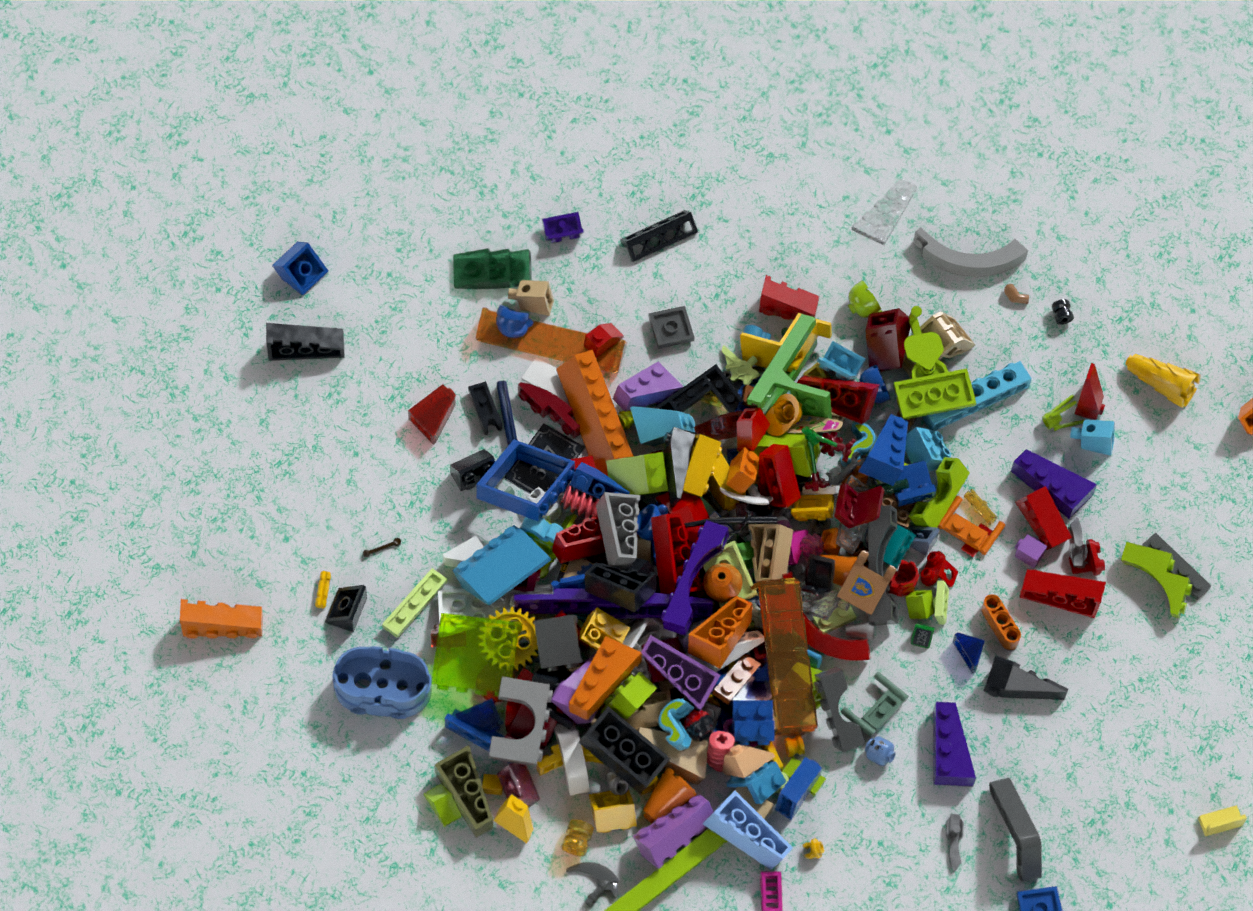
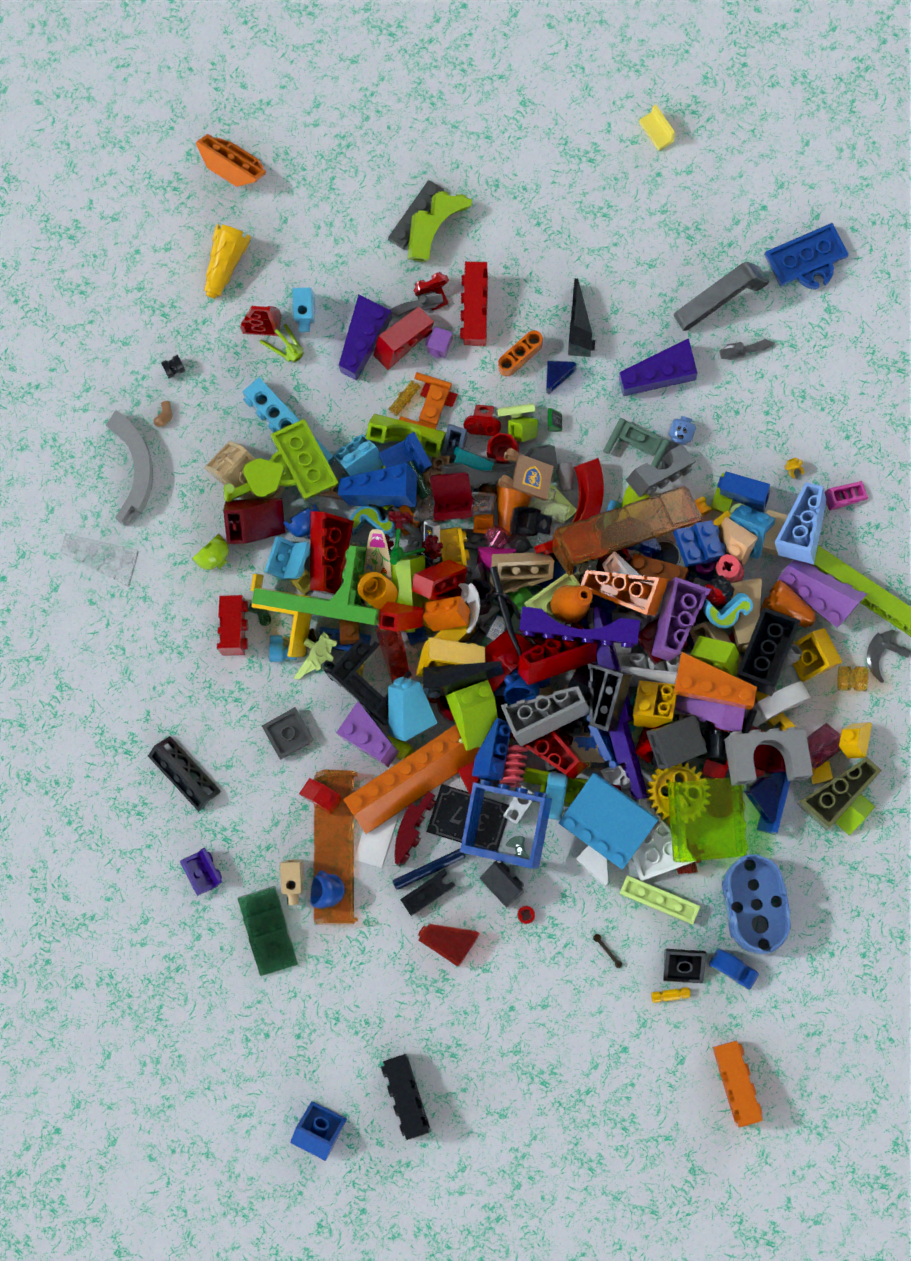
camera: 90 degrees left, 15 degrees up
(327, 647) = (733, 968): none -> blue animal
(437, 480) = (520, 917): none -> red bush

